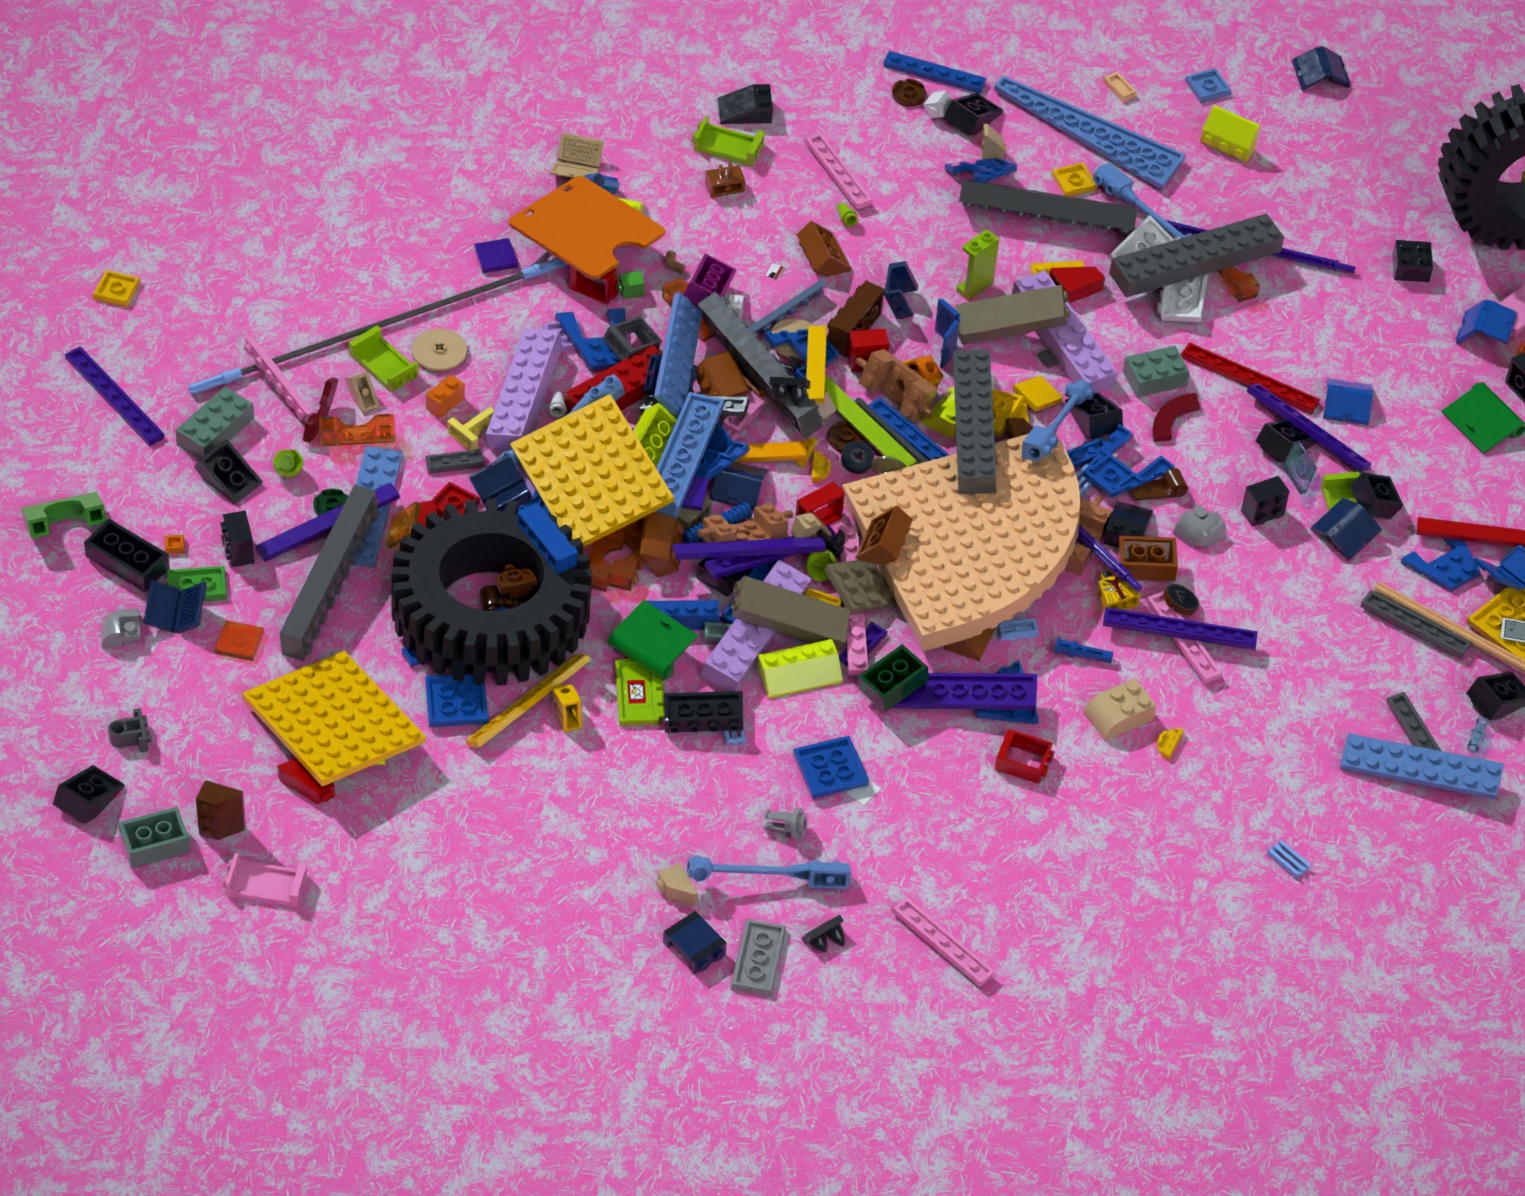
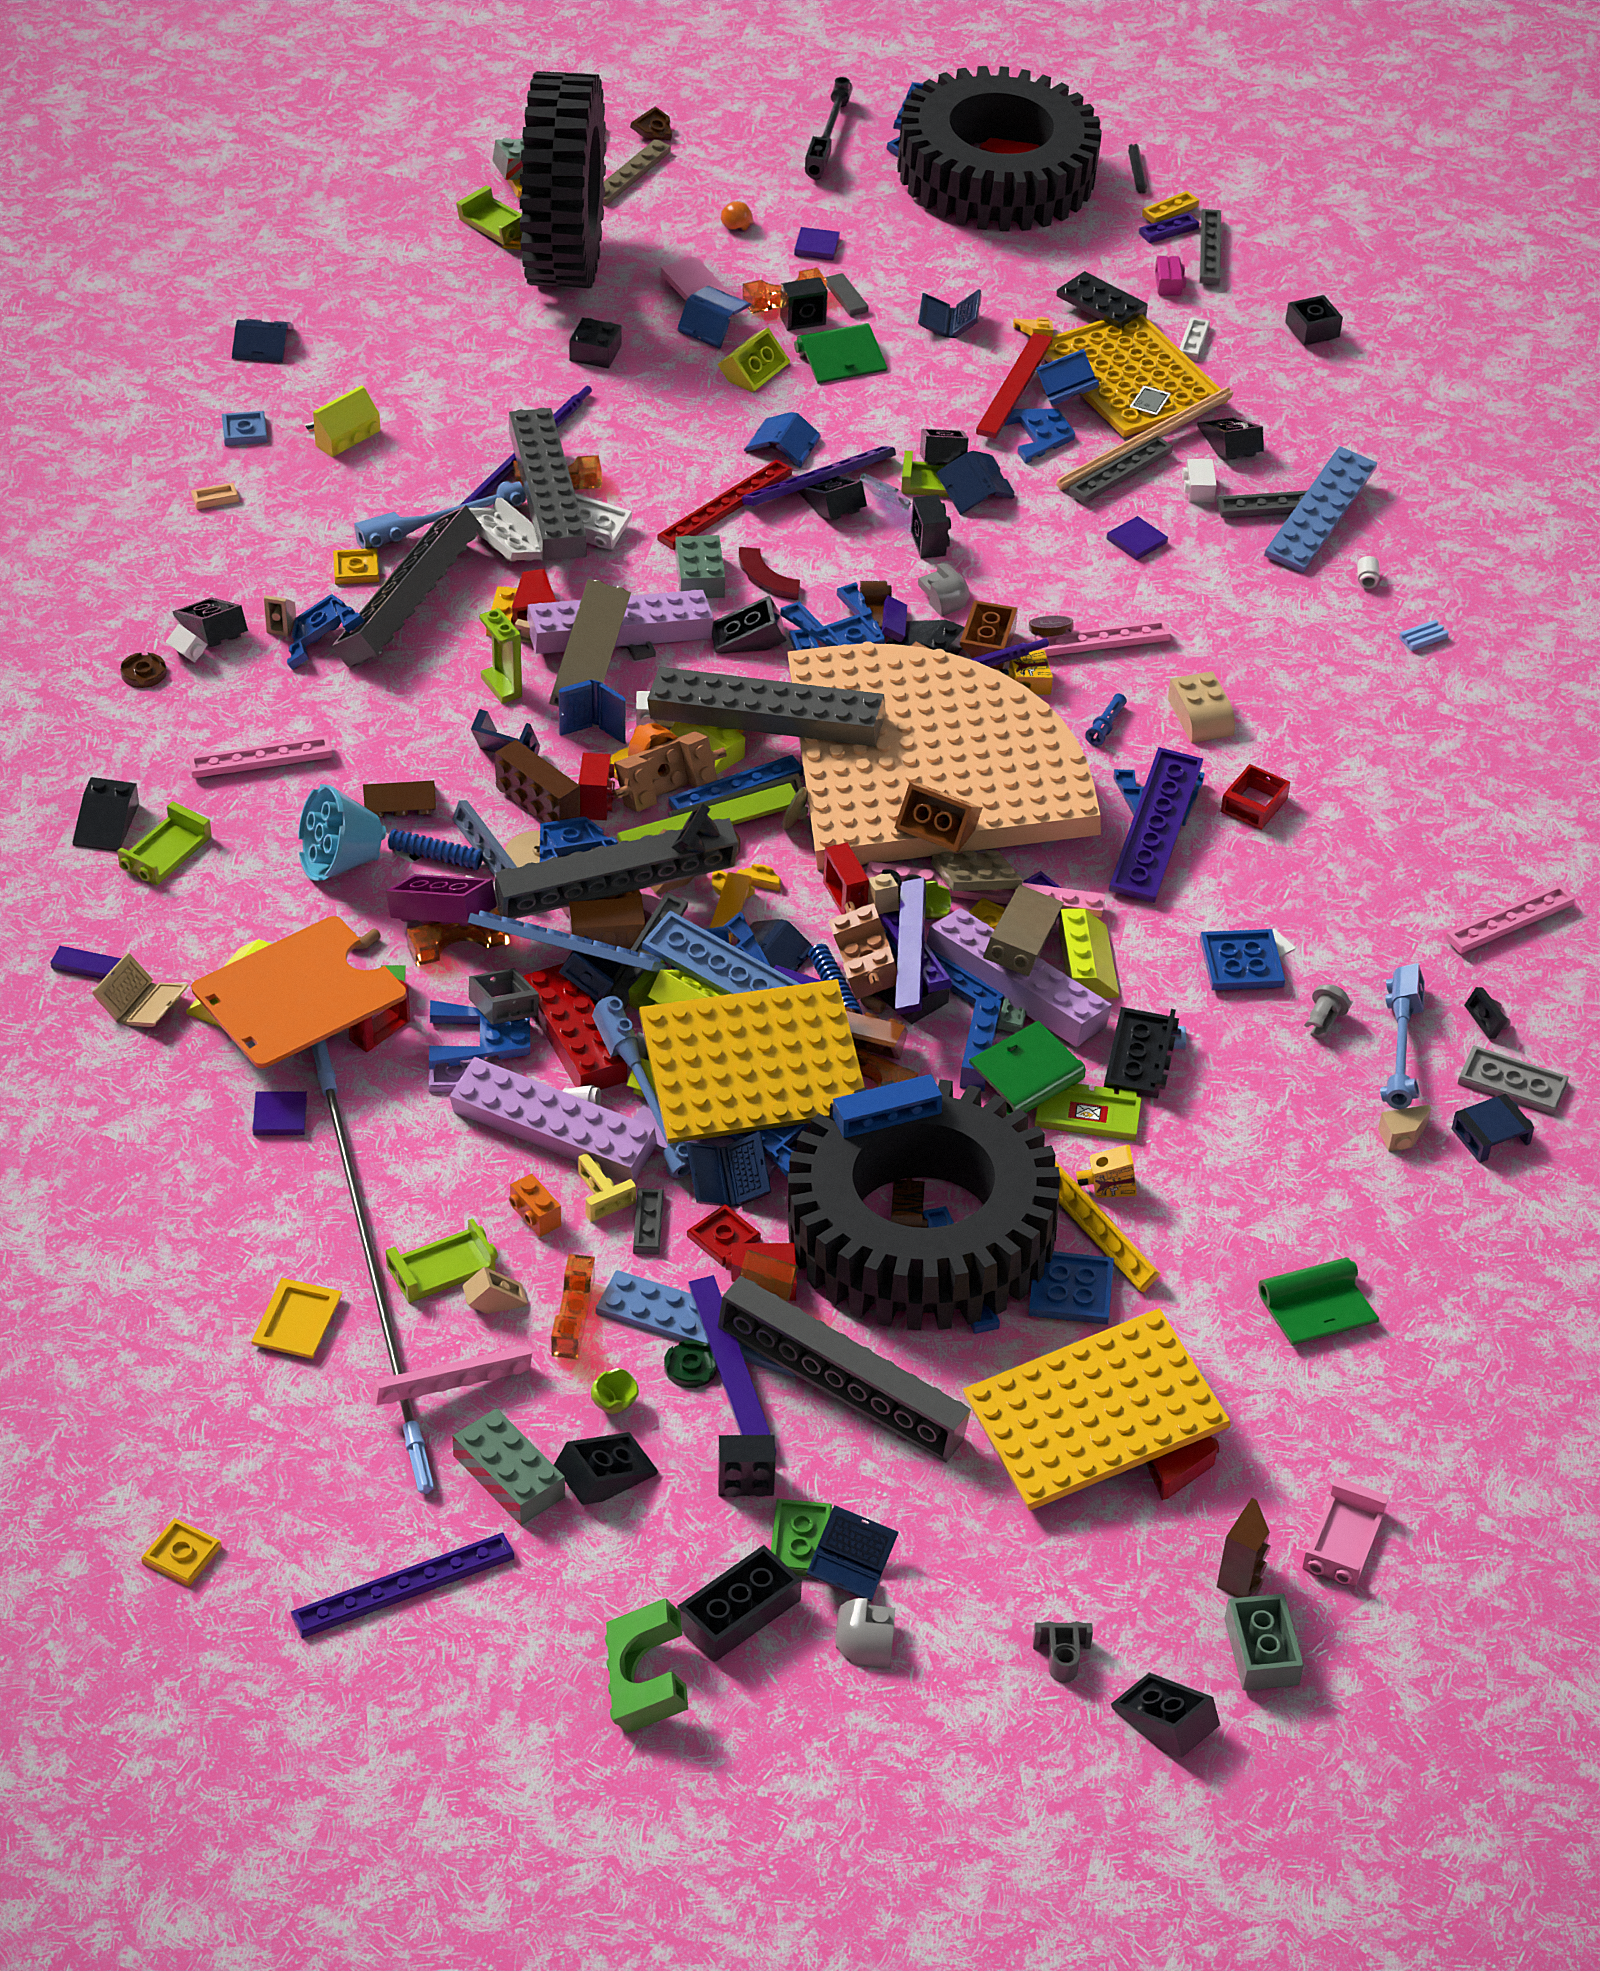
camera: 75 degrees left, 5 degrees down
(174, 544) = (717, 1552): orange tile -> none
(239, 640) = (915, 1504): clear orange tile -> none
(317, 300) = (296, 1318): none -> yellow piece
(326, 400) = (551, 1357): dark red tile -> none
(428, 352) = (453, 1190): tan piece -> none
(482, 847) = (1317, 1301): none -> green door
(515, 581) = (922, 1167): reddish brown plate -> none
(603, 130) = (83, 962): none -> dark purple tile
(608, 183) = (196, 970): blue piece -> none
(725, 180) = (237, 861): dark orange brick -> none
(756, 220) = (337, 834): none -> medium azure cone
(777, 280) = (435, 849): none -> blue piece
(816, 362) = (601, 826): yellow tile -> none
(847, 215) = (341, 765): lime cone -> none
(854, 449) = (759, 838): black bush -> none
(893, 678) = (1138, 866): dark green brick -> none
(934, 72) = (116, 640): blue plate -> none
(1038, 393) = (703, 662): yellow tile -> none
(1041, 439) = (820, 654): medium blue bar -> none
(1126, 148) = (321, 512): medium blue wing -> none
(1143, 498) = (894, 619): none -> dark purple tile
(1168, 742) = (1248, 686): yellow tile -> none
(1180, 628) = (1096, 634): dark purple tile -> none
(1330, 647) = (1137, 537): none -> dark purple tile
(1353, 810) = (1368, 571): none -> white brick
(1425, 679) = (1199, 480): none -> white brick
(1440, 364) = (754, 361): none -> neon yellow slope
(1477, 734) = (1280, 464): clear light blue pin -> none

